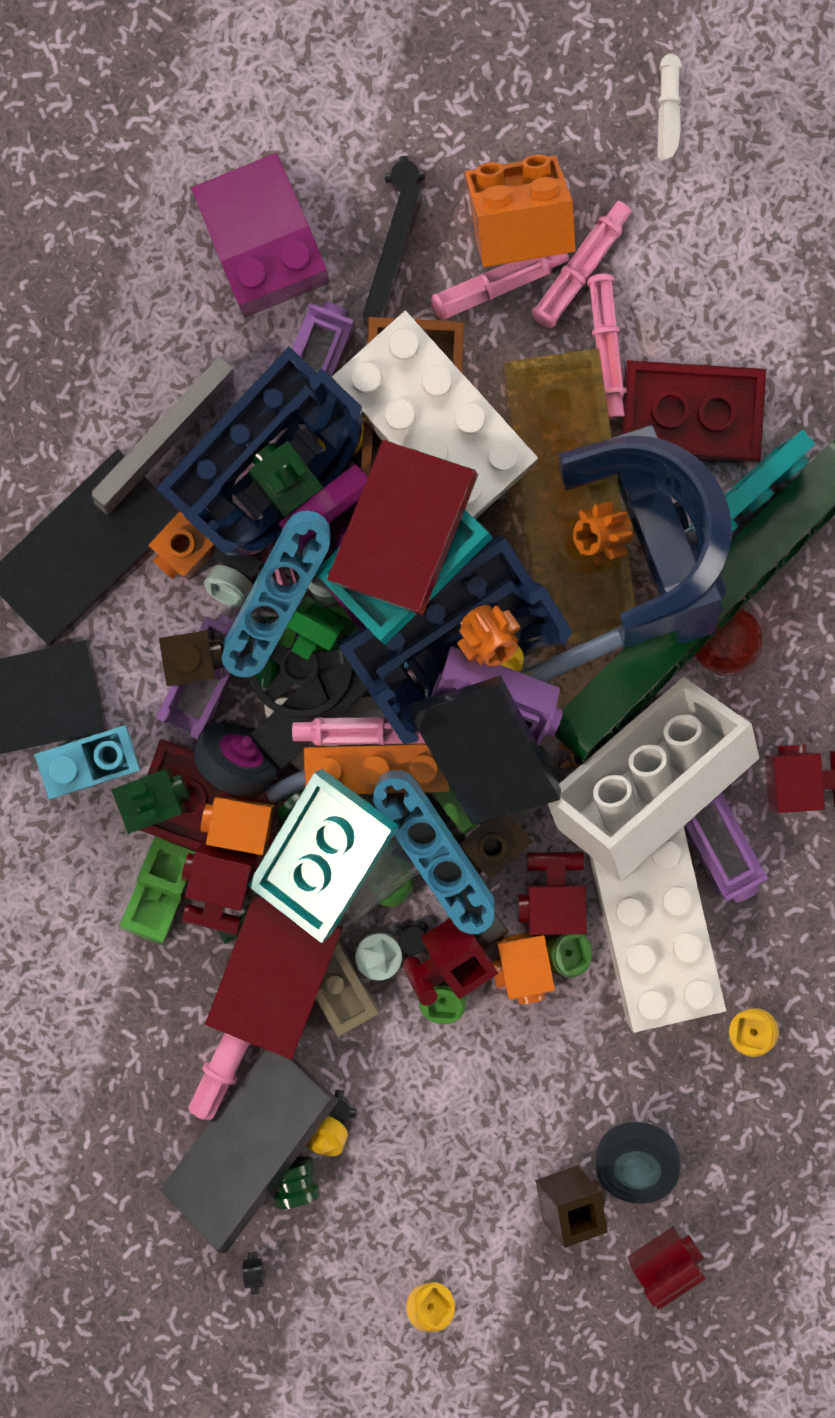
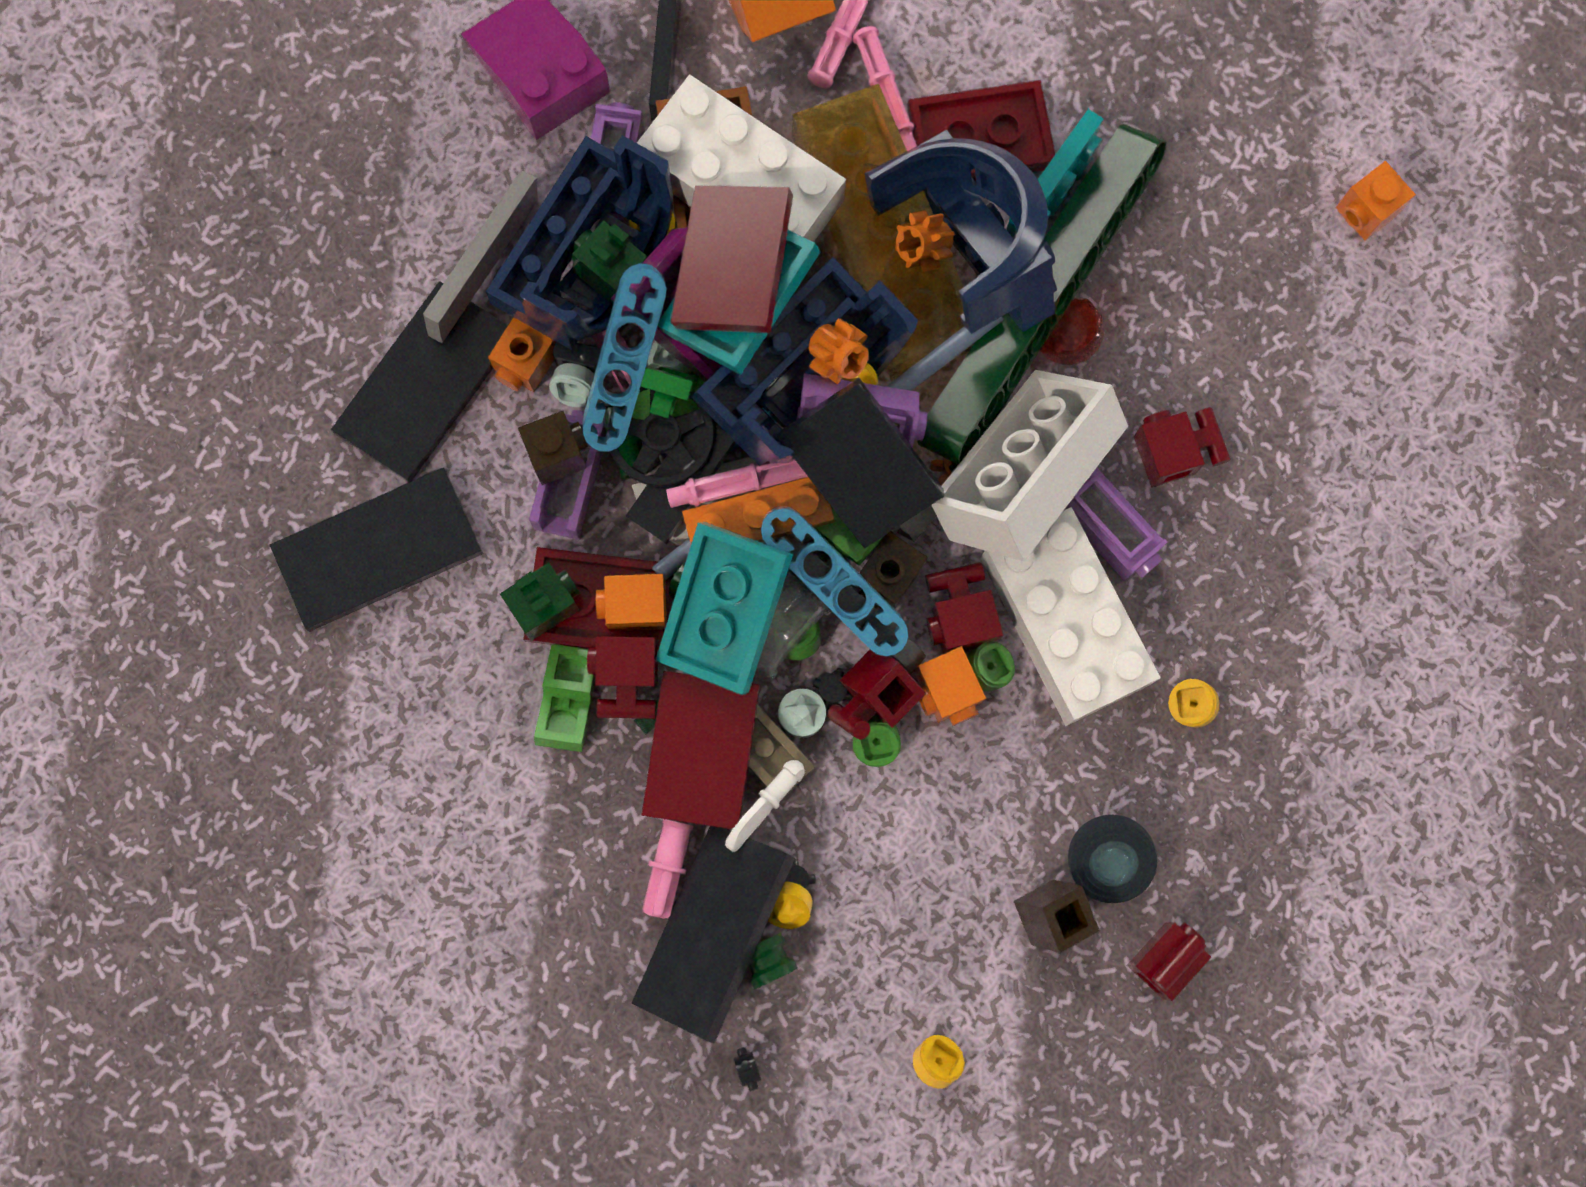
camera: 15 degrees left, 10 degrees down
(87, 762) = (470, 580): medium azure slope -> none
(234, 760) = (617, 544): black wheel -> none
(329, 1037) = (769, 798): none -> white piece
(492, 284) = (770, 54): bright pink piece -> none

